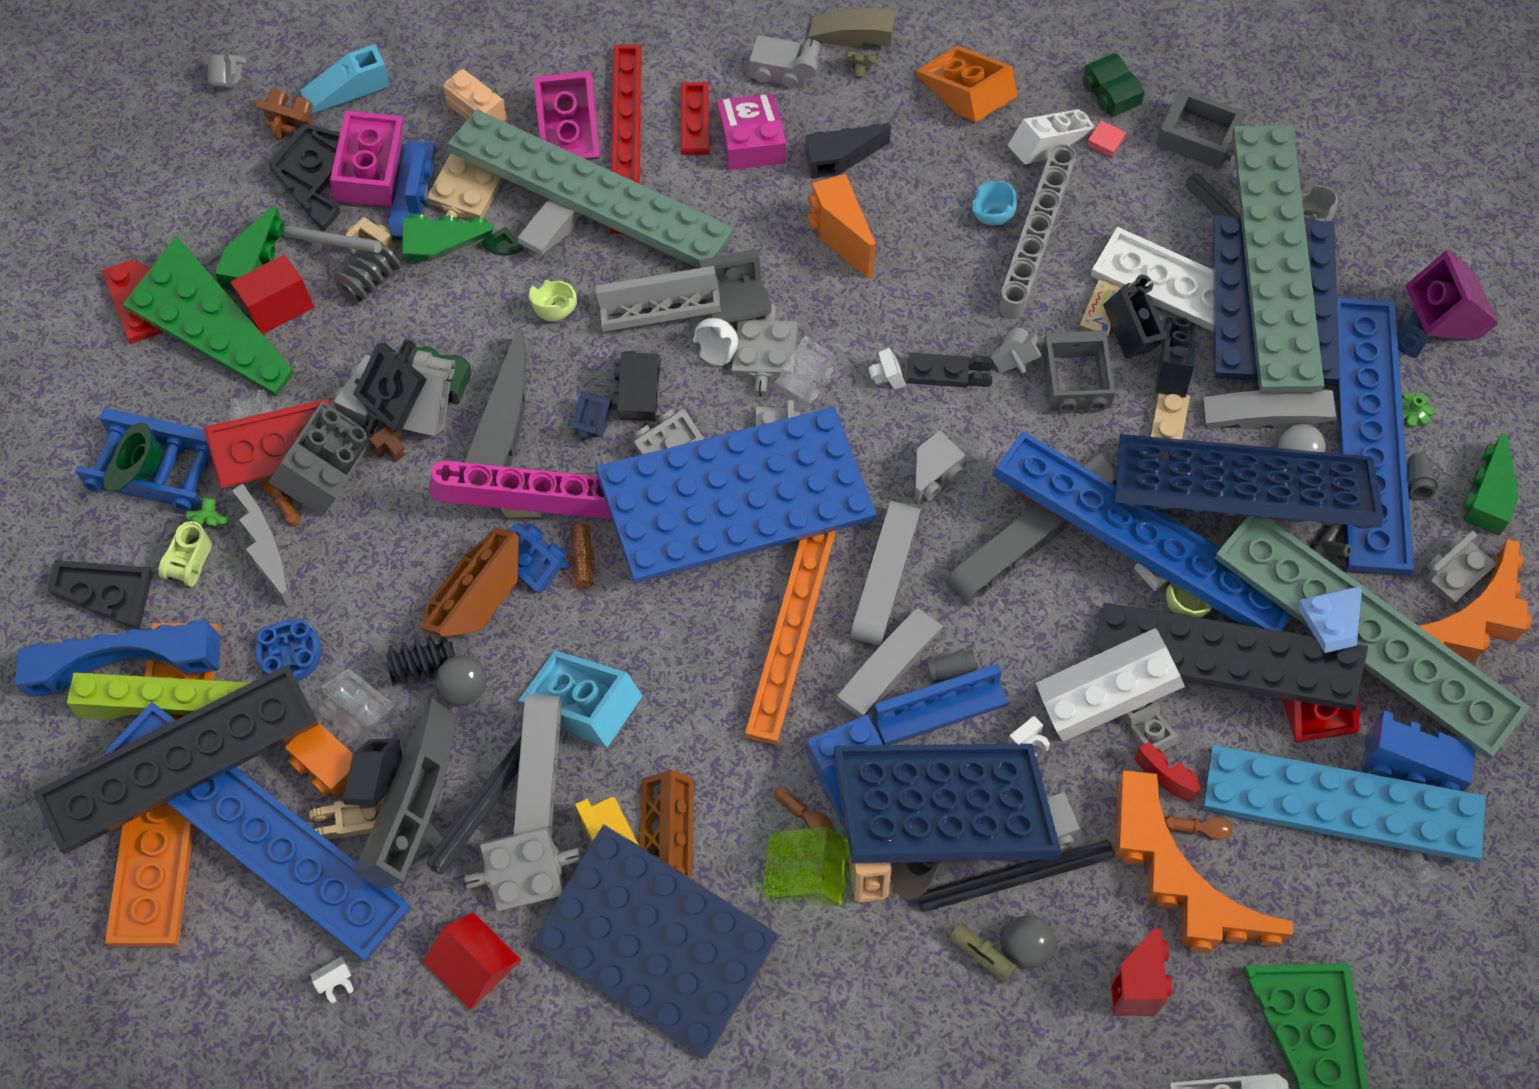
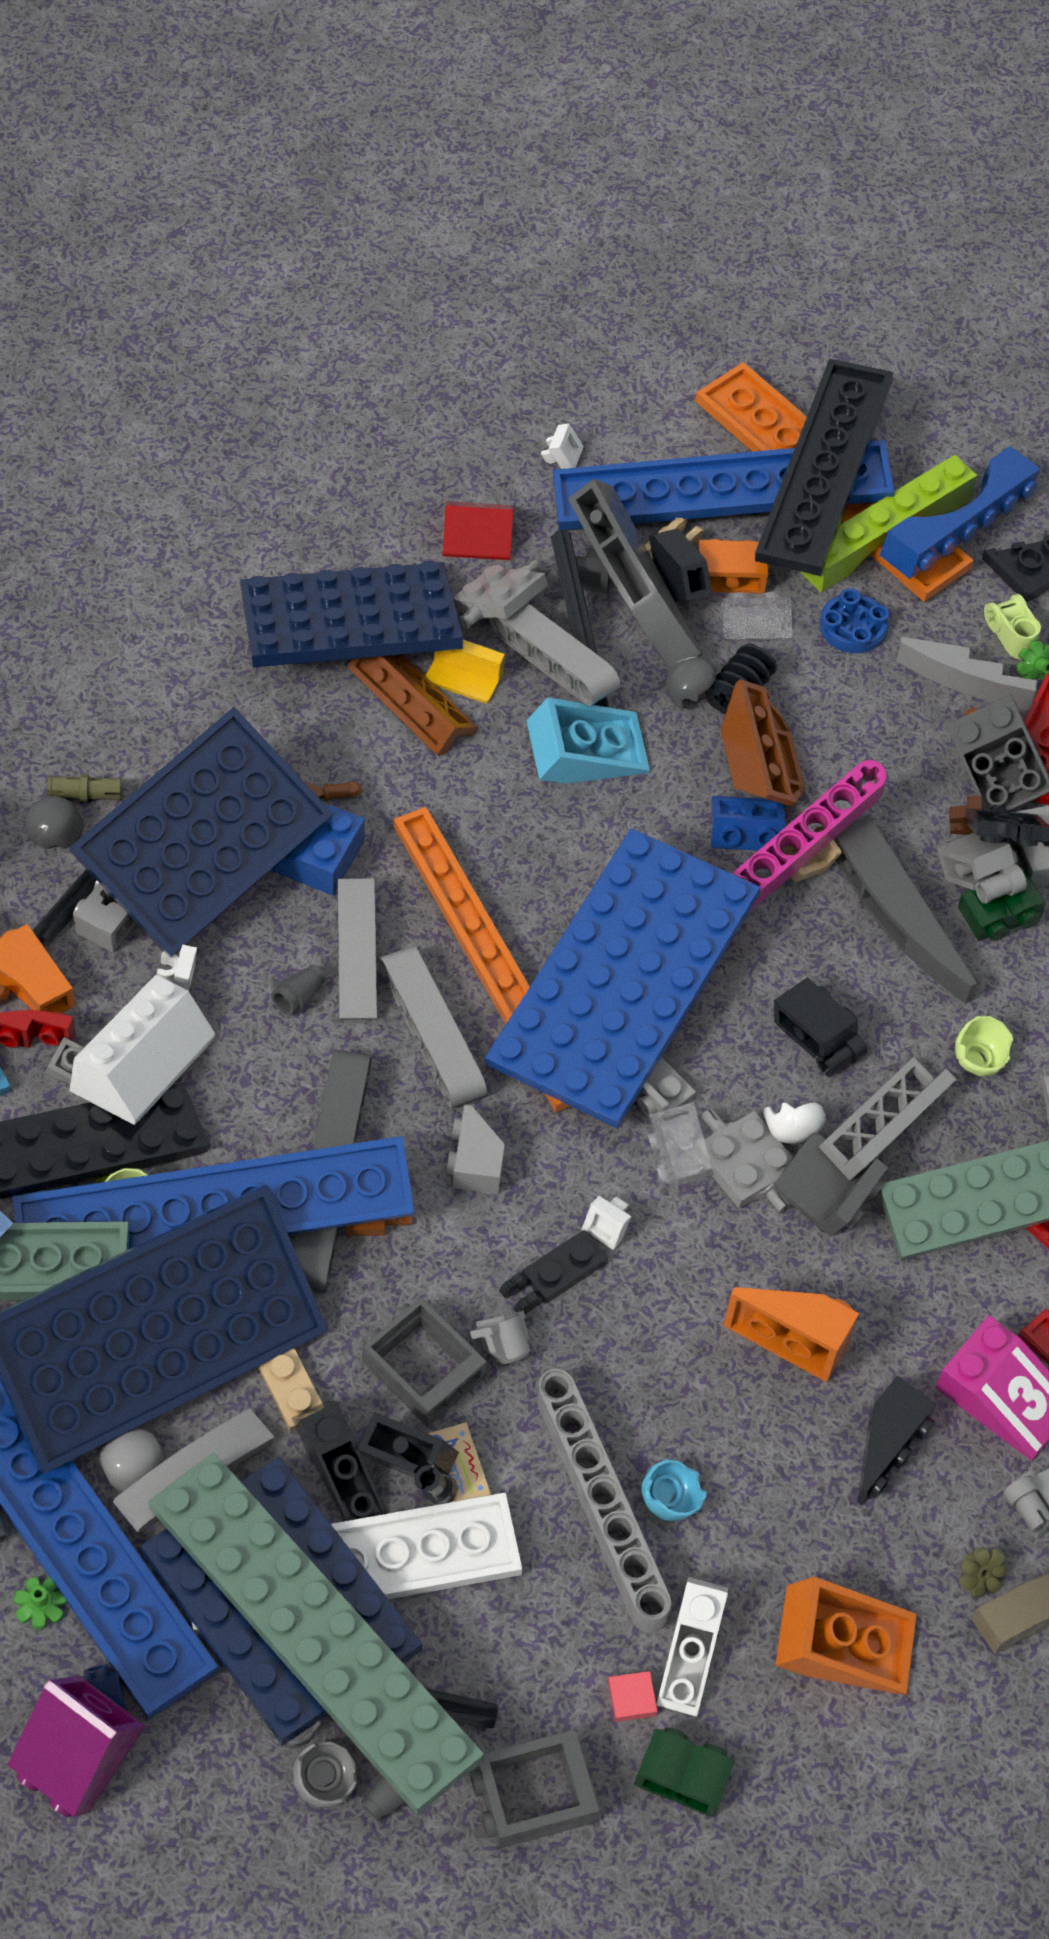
camera: 135 degrees right, 5 degrees down
(581, 556) = (691, 839): clear orange pin -> none
(591, 415) = (827, 966): dark blue bracket -> none
(672, 431) = (744, 999): light grey bracket -> none
(806, 865) = (294, 741): clear neon green bracket -> none
(939, 705) = (282, 948): blue fence -> none

